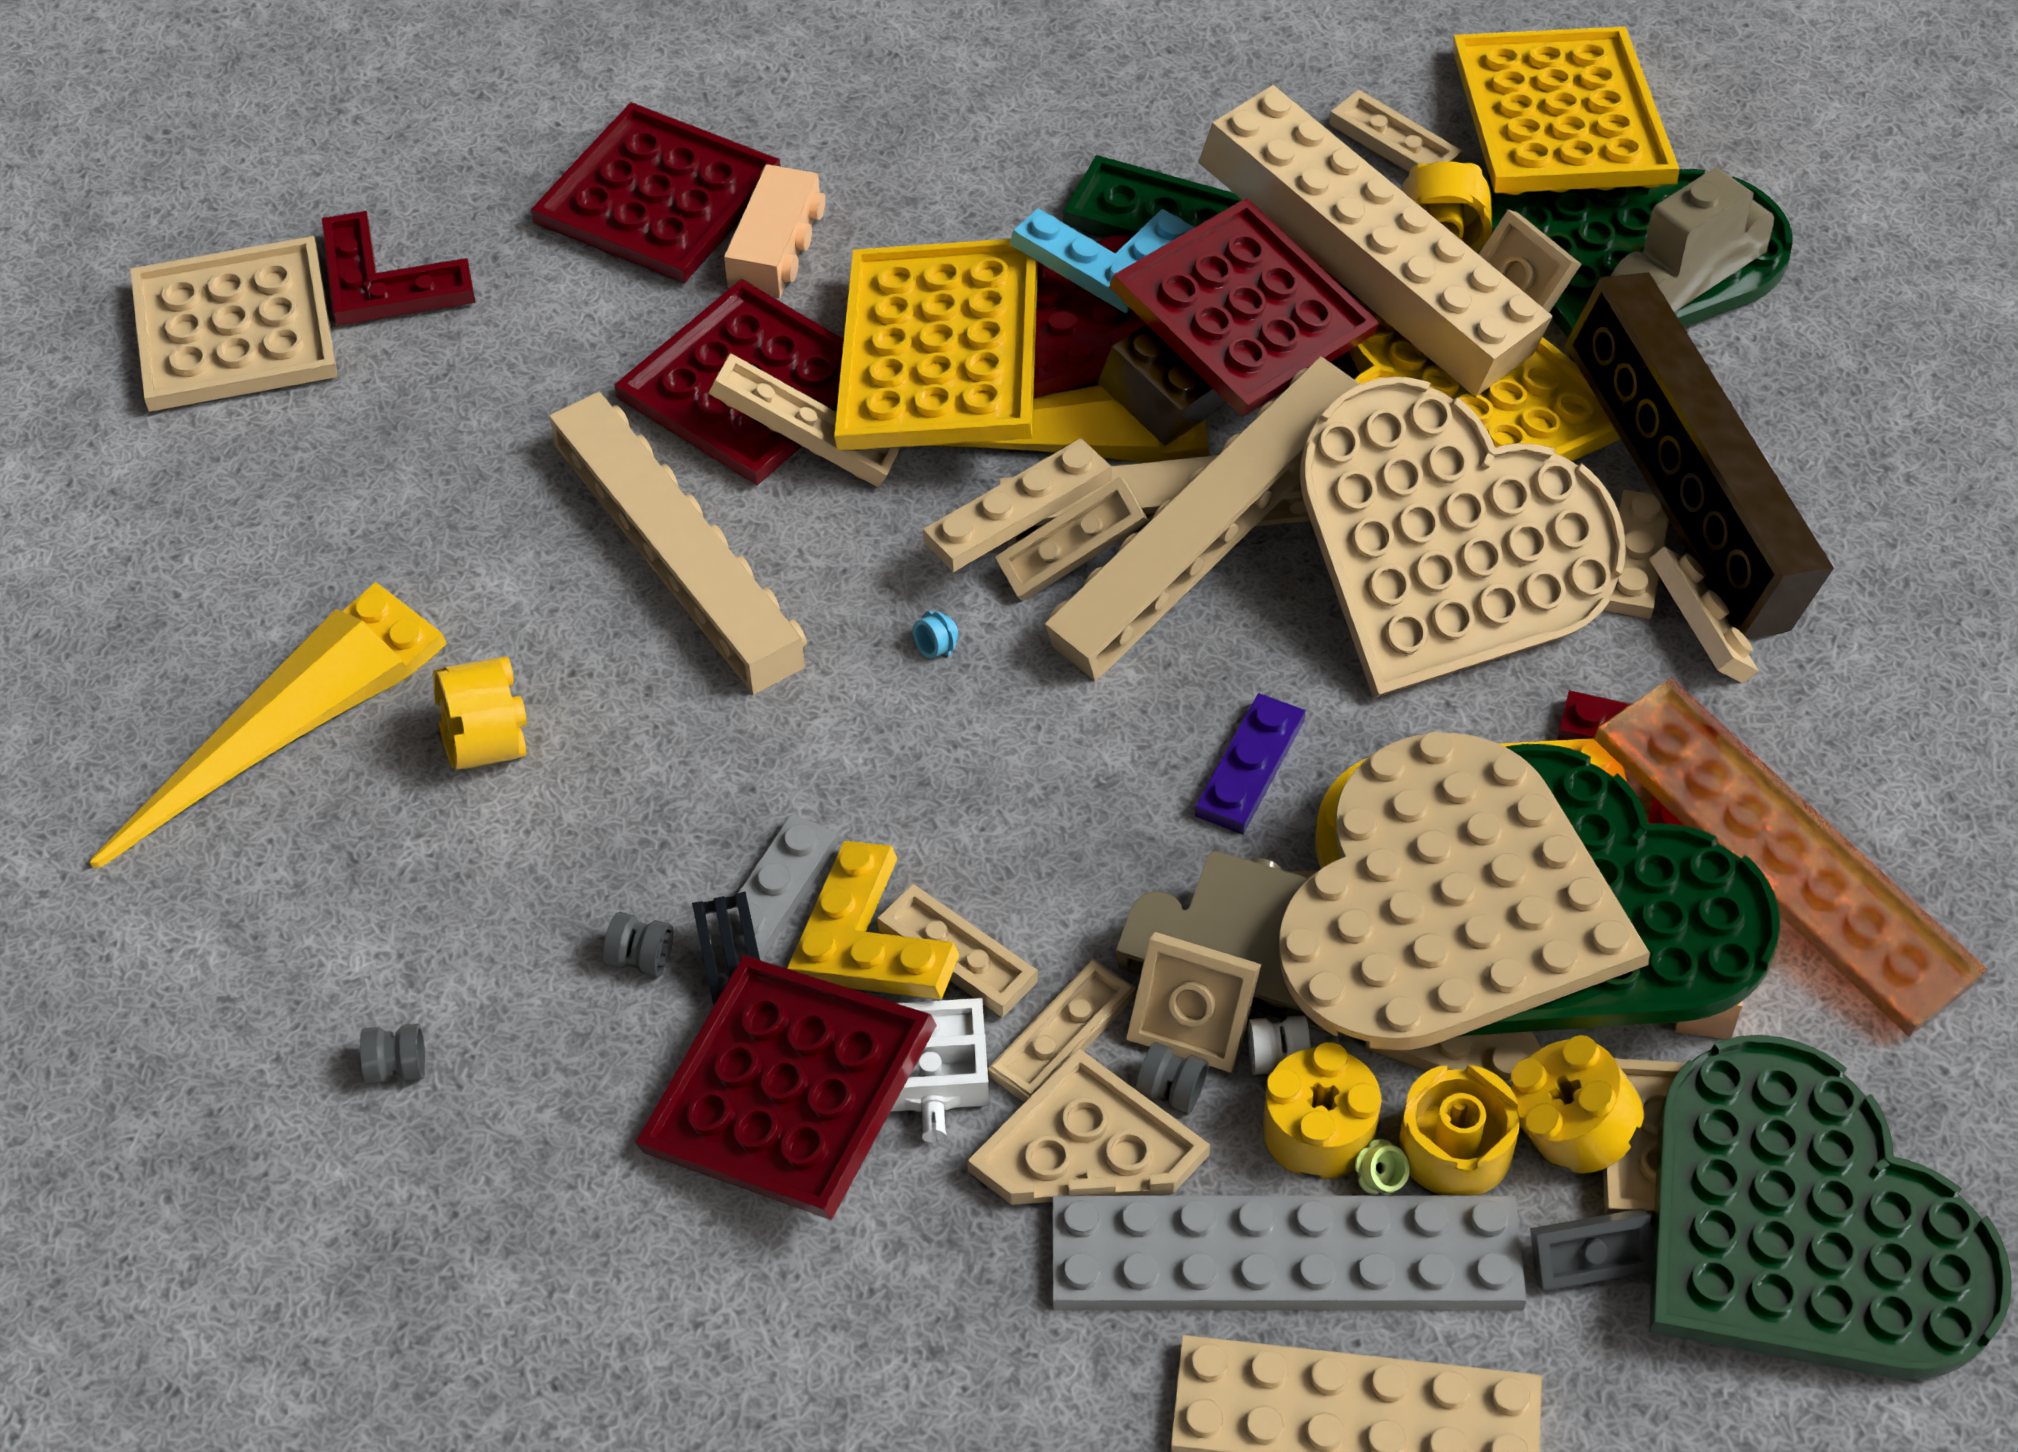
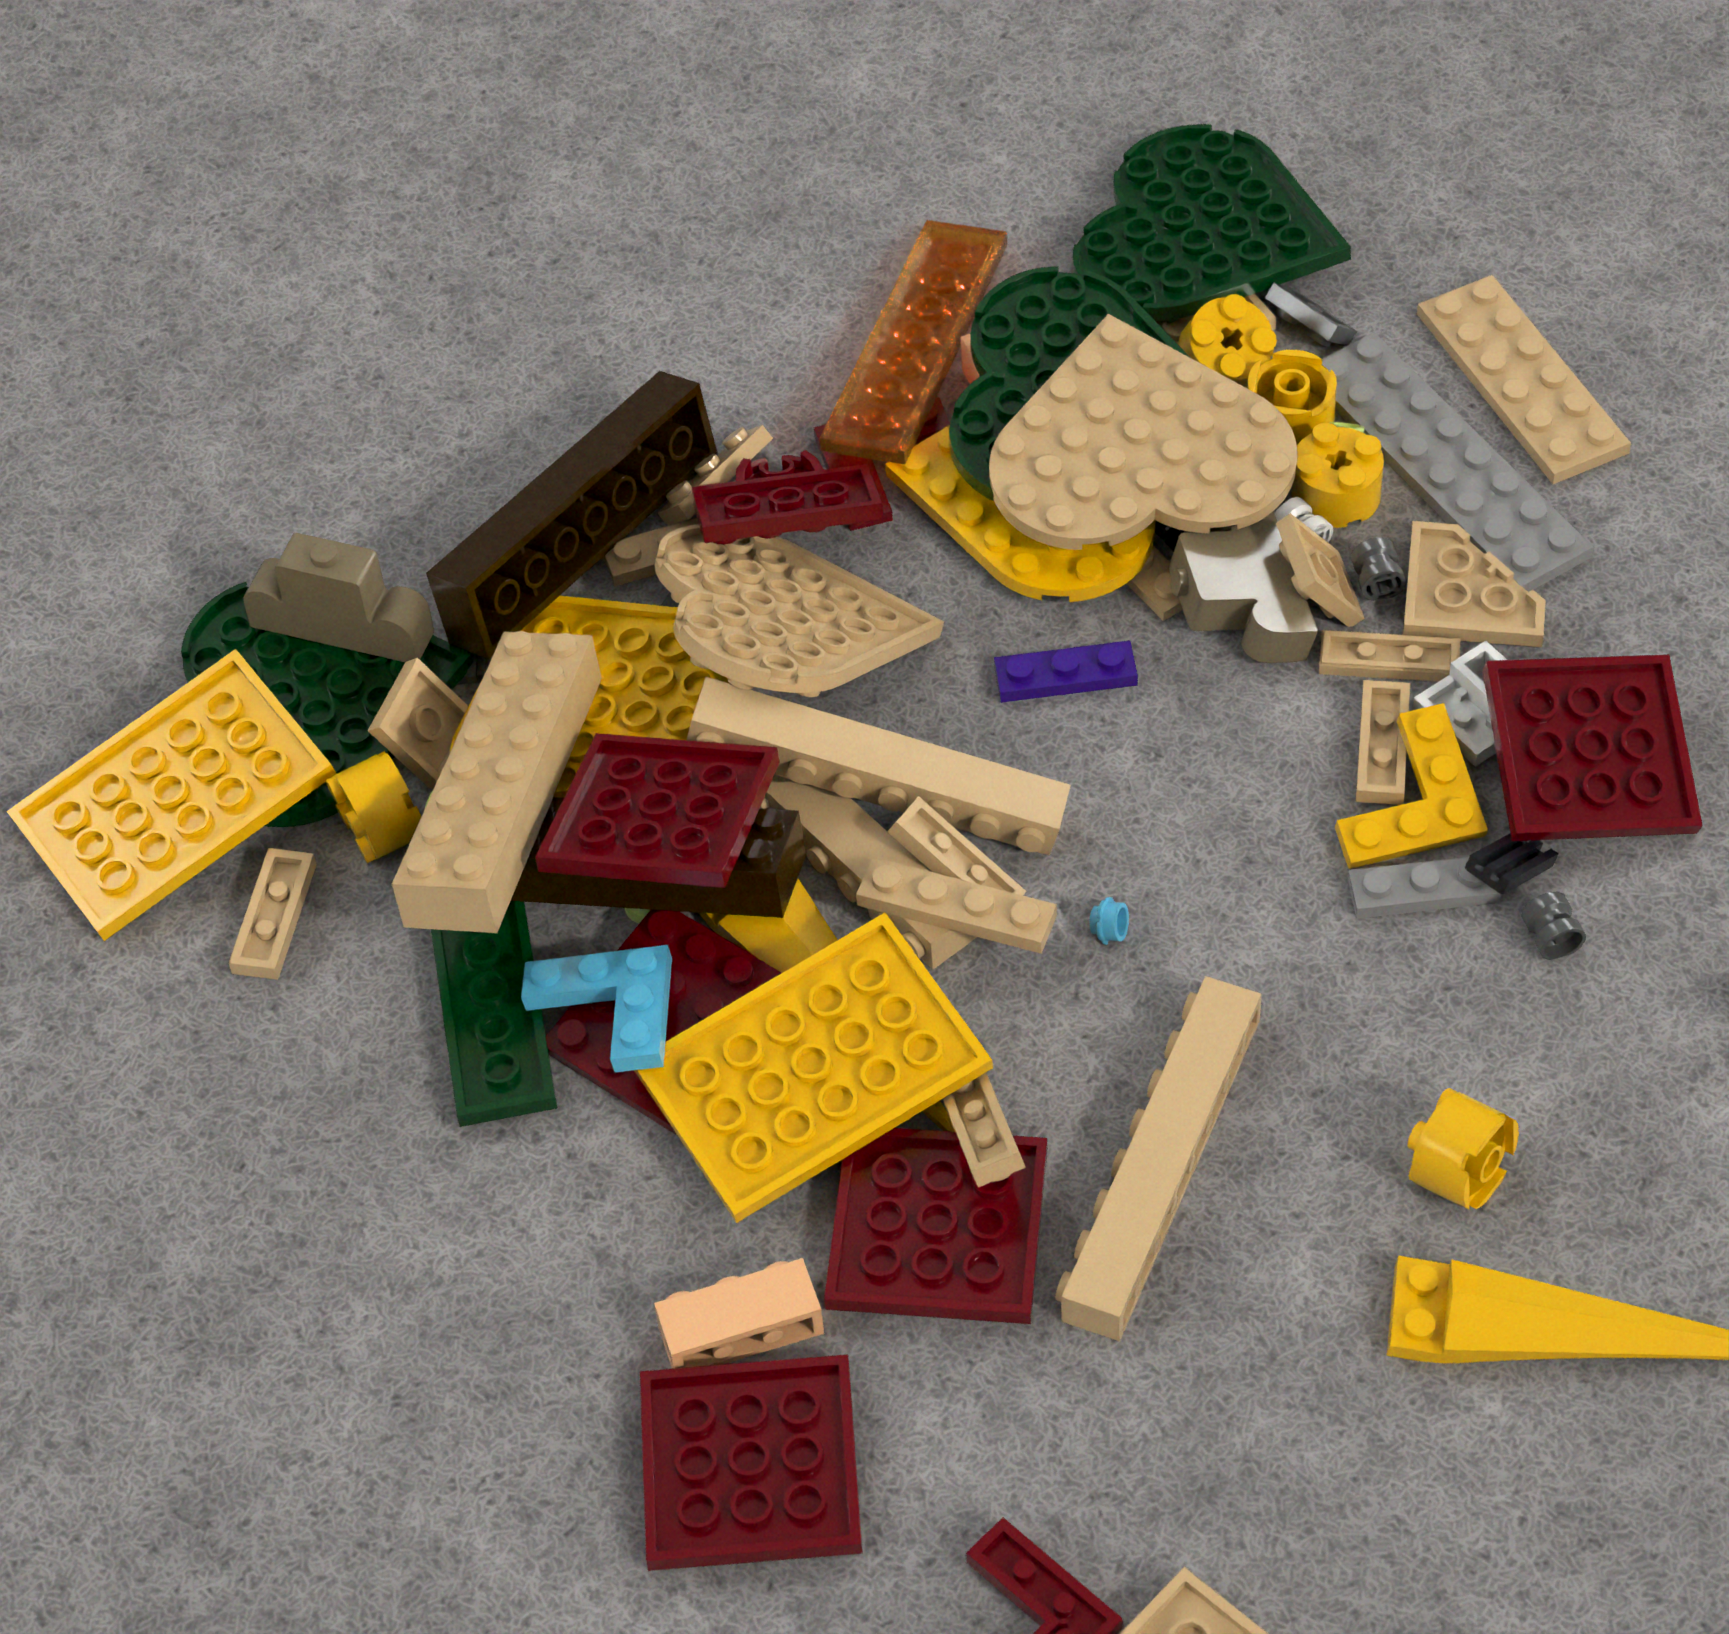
camera: 120 degrees left, 0 degrees up
(1604, 616) = (786, 500): none -> dark red plate

